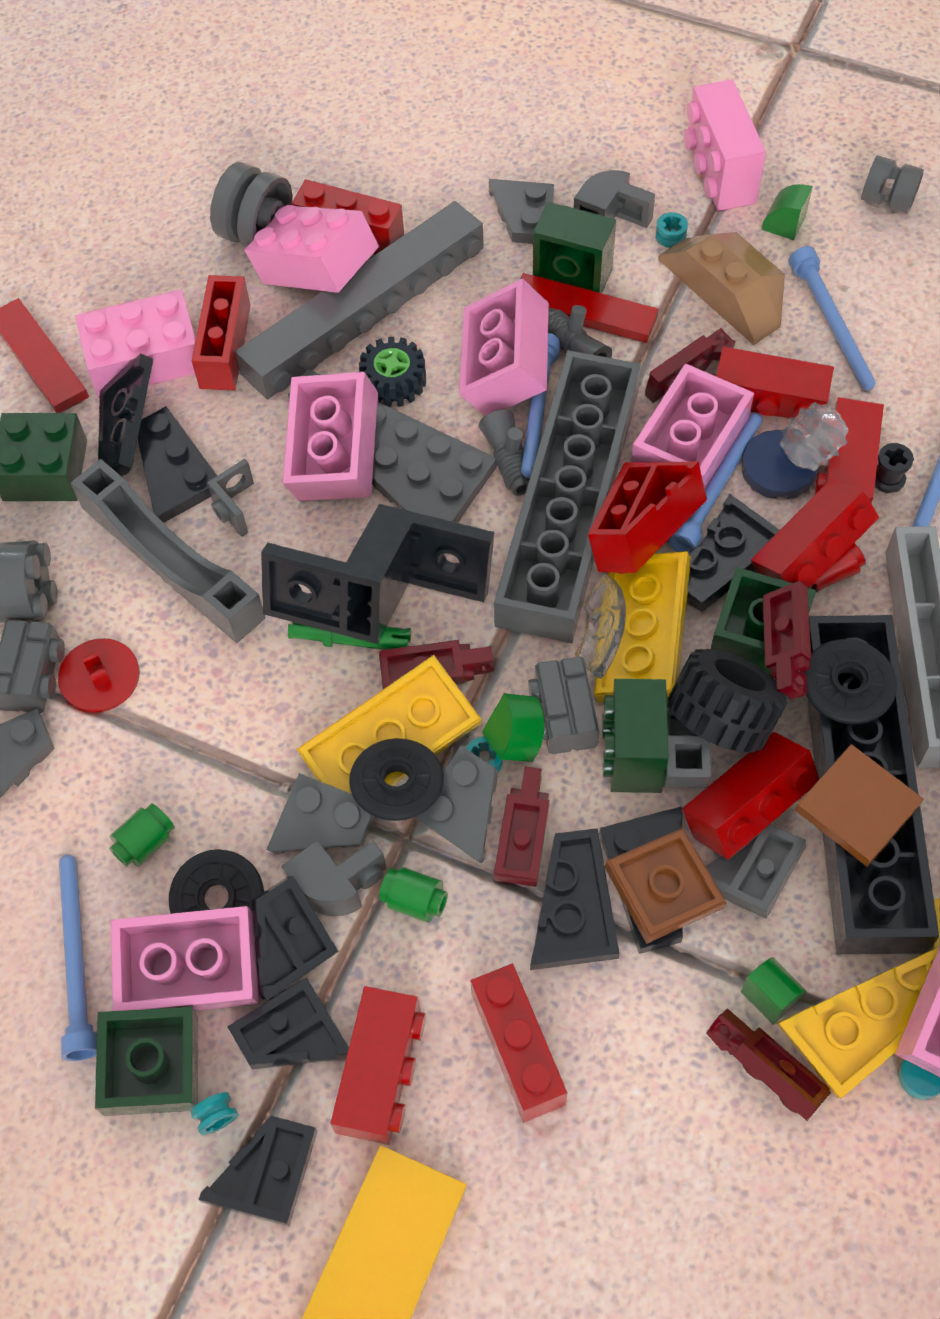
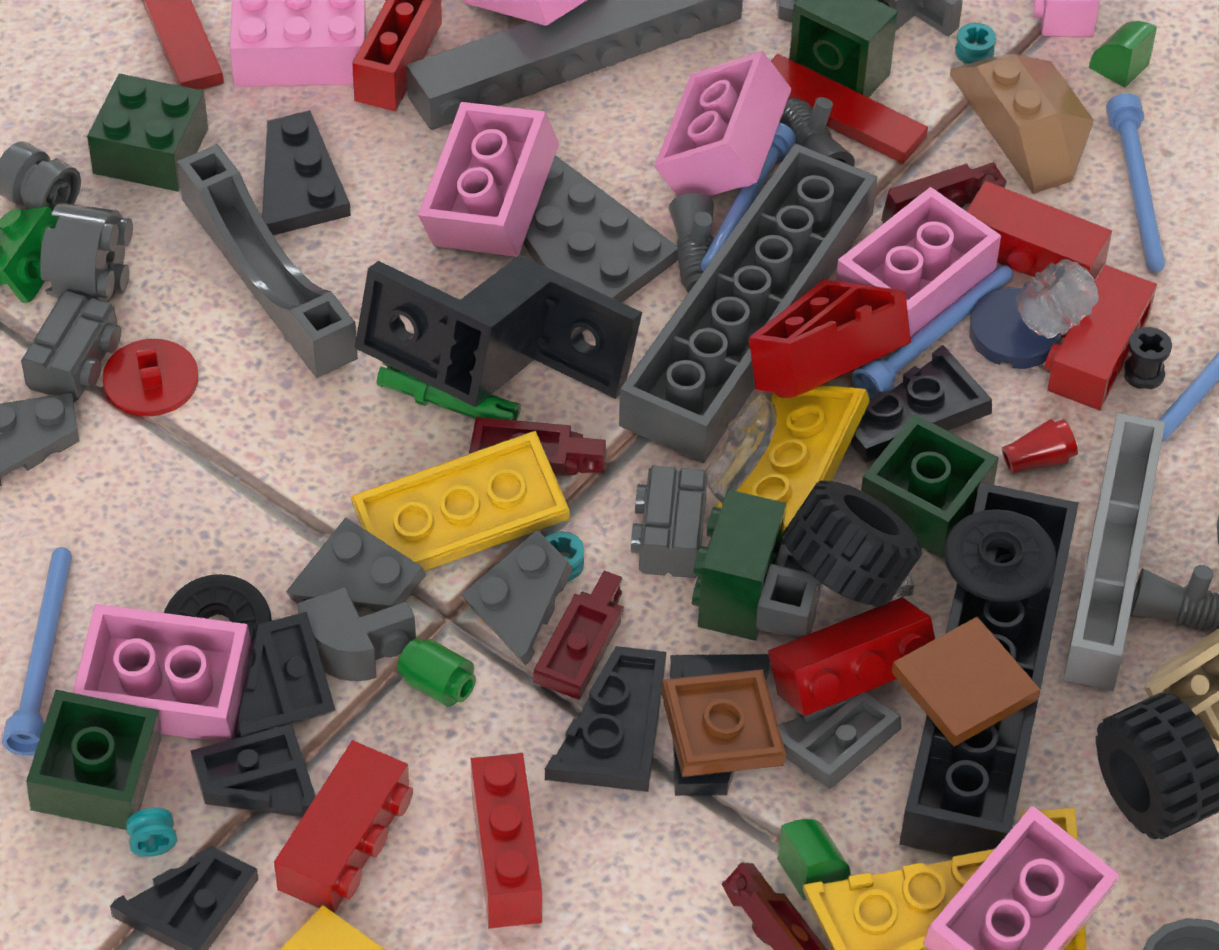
camera: 10 degrees right, 10 degrees down
(121, 414) = (256, 104): black wing -> none
(141, 835) = (151, 545): green brick -> none
(221, 496) = (346, 222): dark grey bracket -> none
(391, 358) = (588, 128): black wheel -> none
(394, 802) = (428, 562): black wheel -> none
(516, 728) = (606, 527): green brick -> none
(788, 638) = (942, 493): dark red hinge -> none
(817, 534) = (1025, 403): red brick -> none

